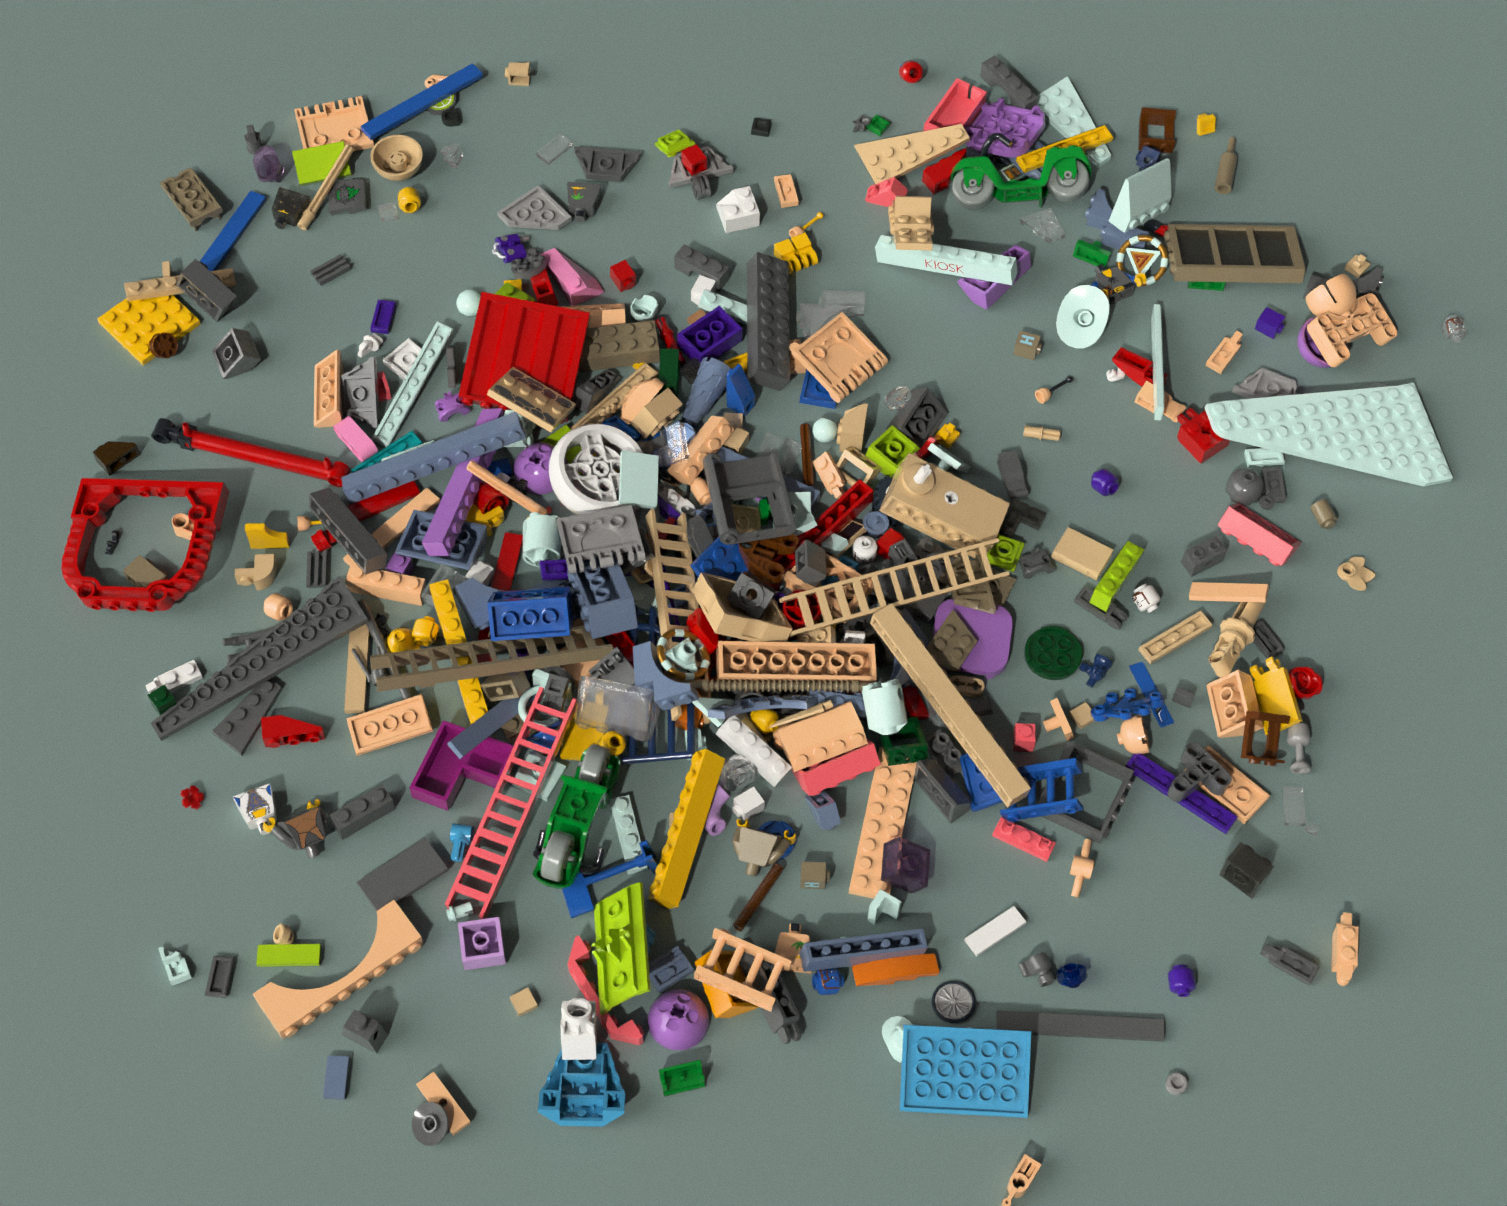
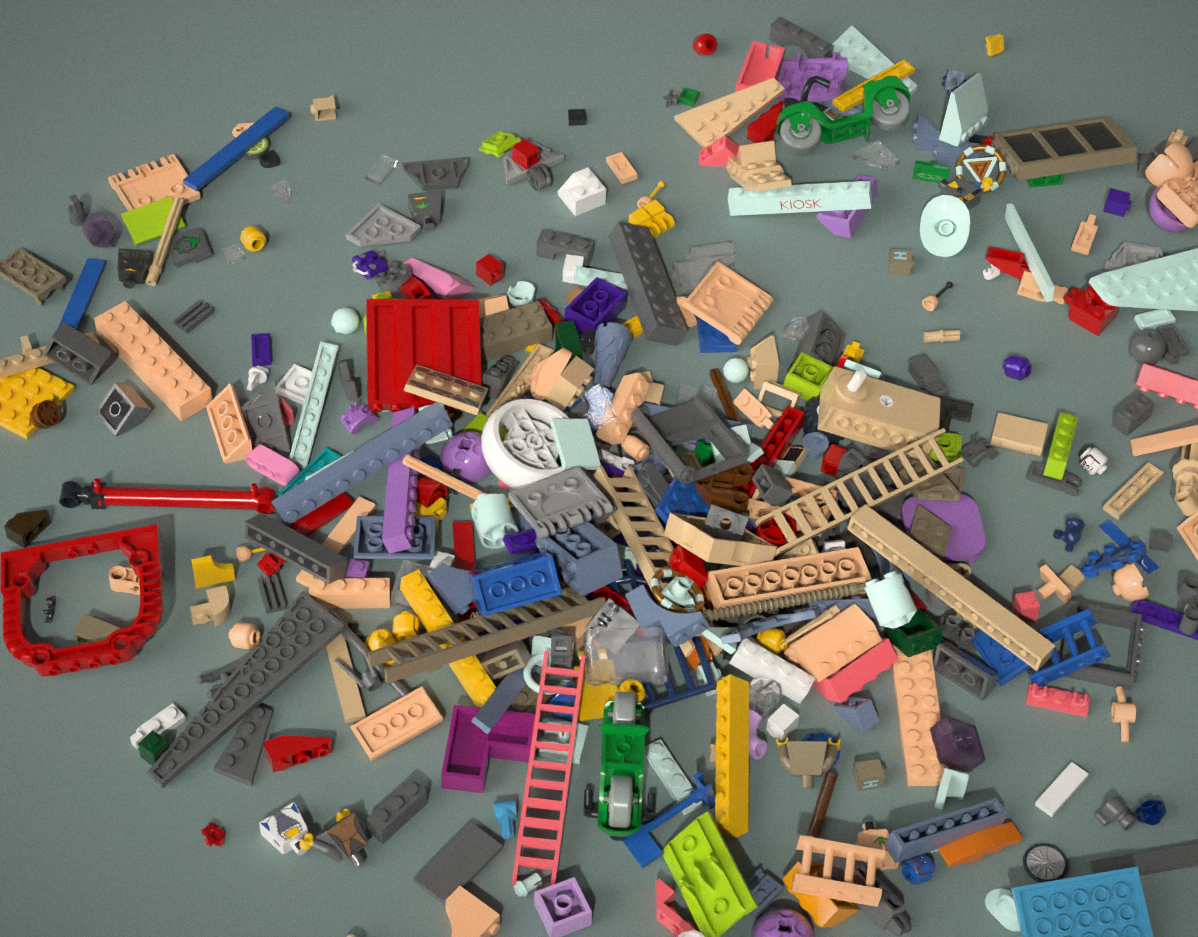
camera: 15 degrees left, 10 degrees down
(278, 309) = (153, 360): none -> light nougat brick
(396, 157) = (230, 201): tan piece -> none
(739, 391) = (644, 350): blue slope -> none
(864, 549) = (813, 469): white head -> none
(1053, 653) = (1023, 528): dark green tile -> none
(1159, 117) = (950, 45): reddish brown panel -> none
(1226, 169) = (1028, 79): dark tan piece -> none

